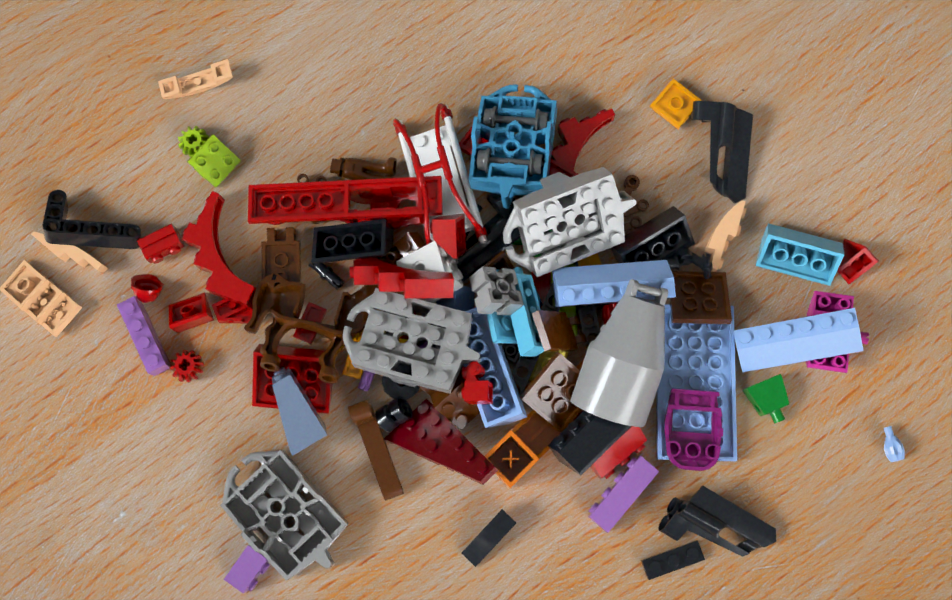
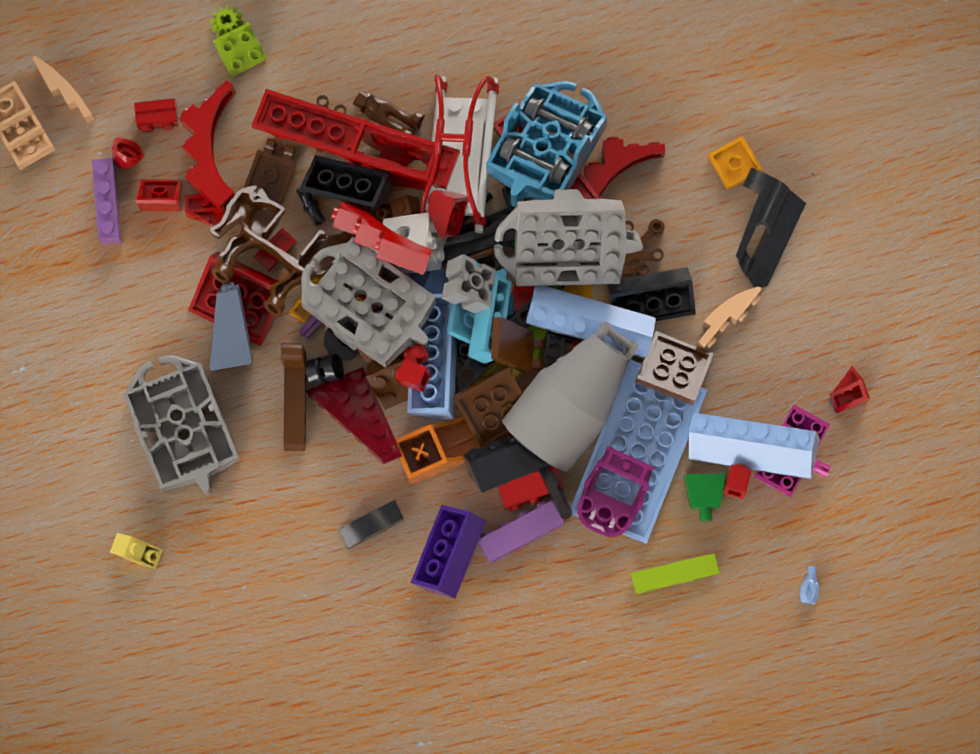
camera: 20 degrees right, 0 degrees up
(84, 233) = (86, 76): black beam -> none
(182, 361) = (142, 252): red gear -> none
(247, 569) = (126, 466): medium lavender brick -> none
(568, 538) = (448, 551): none -> dark purple brick
(645, 450) = (556, 493): none -> black hinge
(672, 560) = (544, 614): black plate -> none
(686, 257) = (680, 324): black pin -> none
(710, 513) = (594, 580): black panel -> none
(772, 478) = (675, 573): none -> lime slope
(797, 377) = (737, 481): none -> red brick
(799, 254) = (796, 363): medium azure slope -> none

